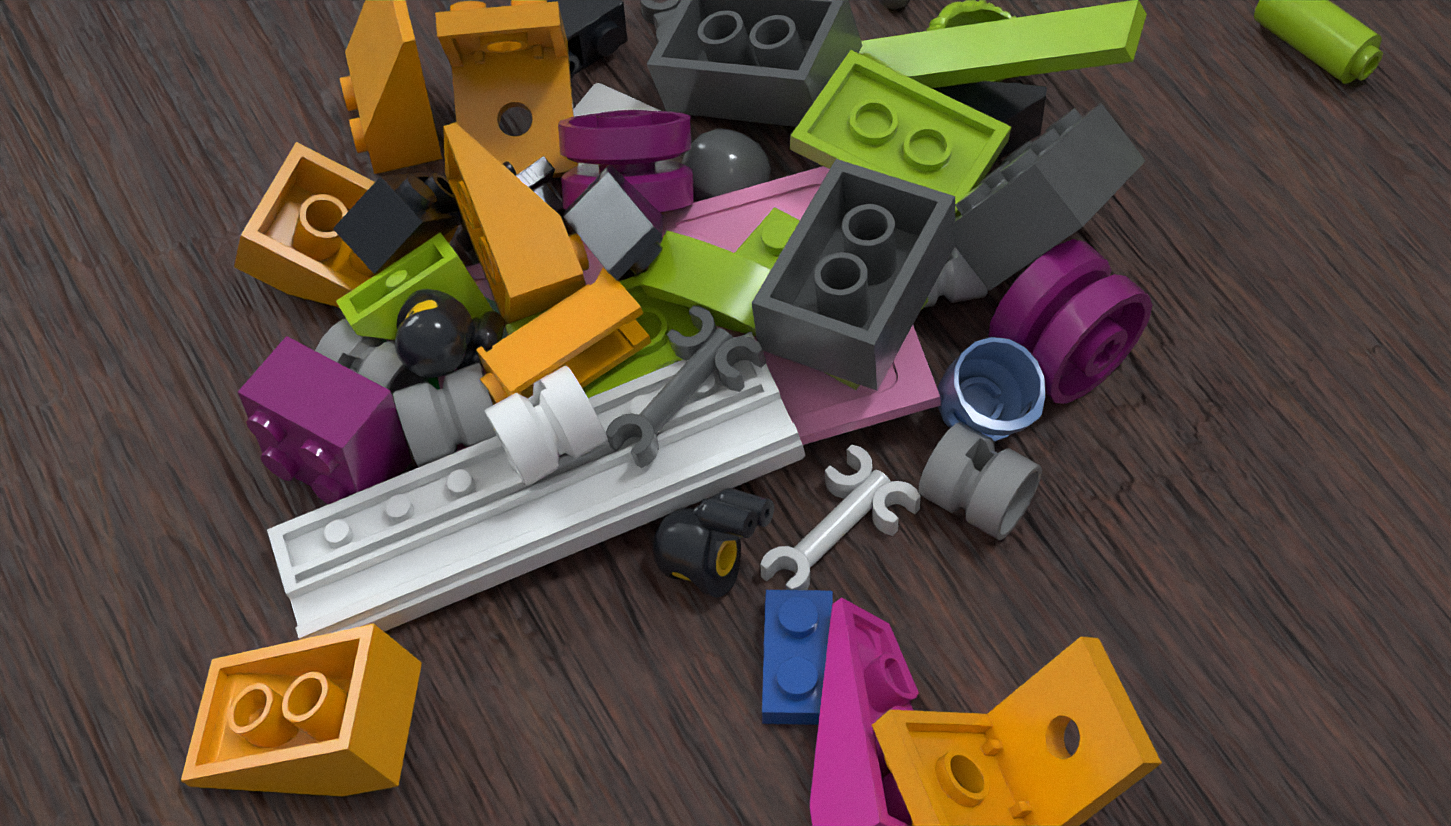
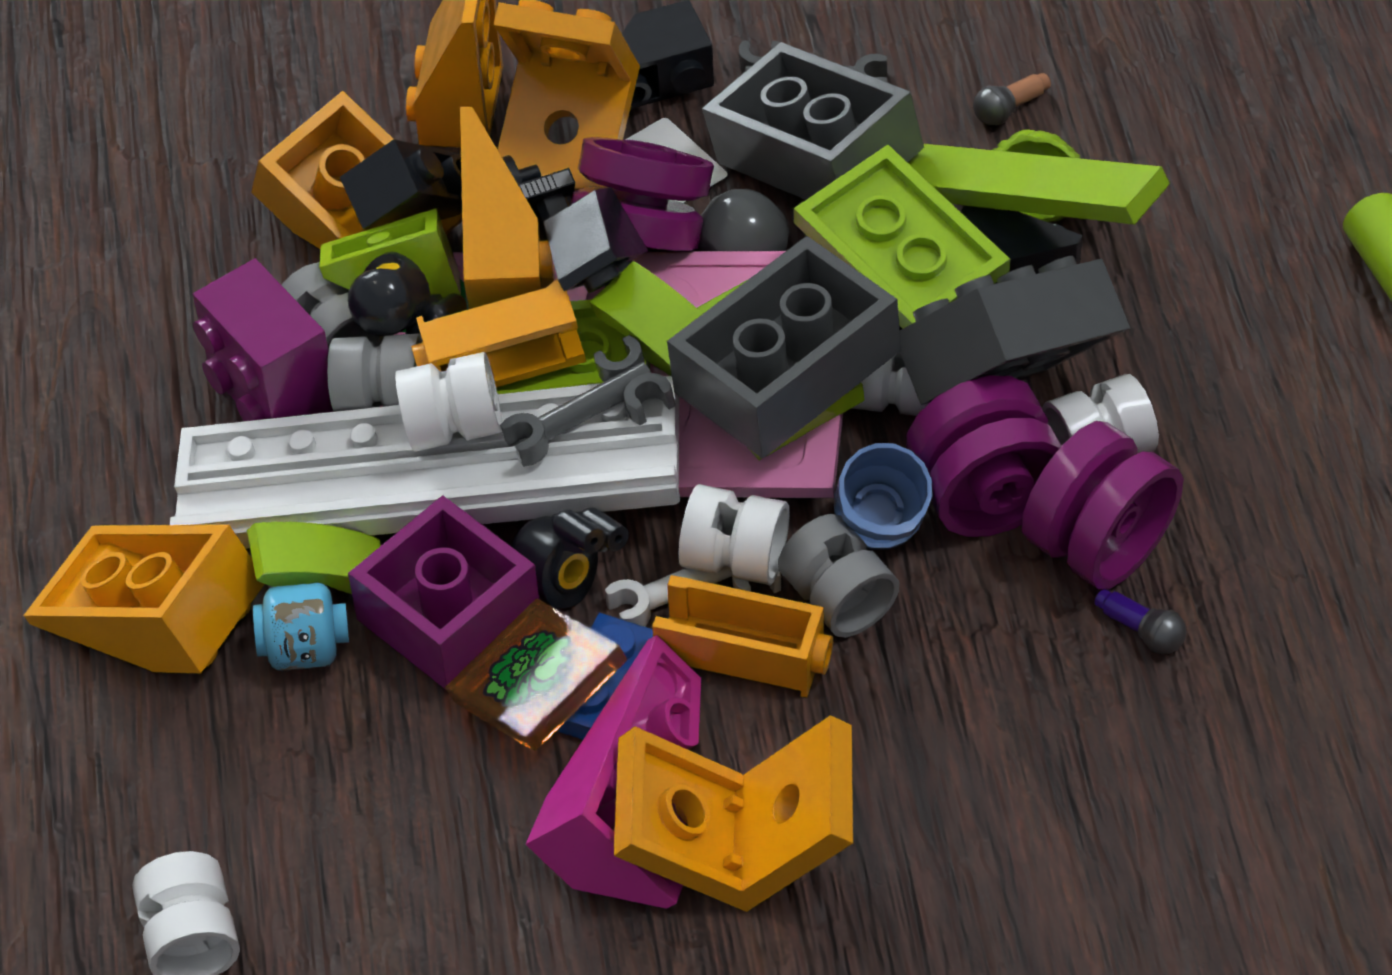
camera: 20 degrees right, 5 degrees down
(461, 624) = (307, 553): none -> lime slope
(479, 703) = (299, 626): none -> medium azure head
(612, 620) = (442, 589): none -> magenta brick
(739, 676) = (536, 674): none -> clear orange tile
(895, 467) = (733, 534): none -> white wheel
(919, 550) = (745, 634): none -> light orange window
(1155, 251) = (1115, 401): none -> white wheel
(1190, 335) = (1102, 504): none -> magenta wheel
(1289, 439) = (1160, 629): none -> piece

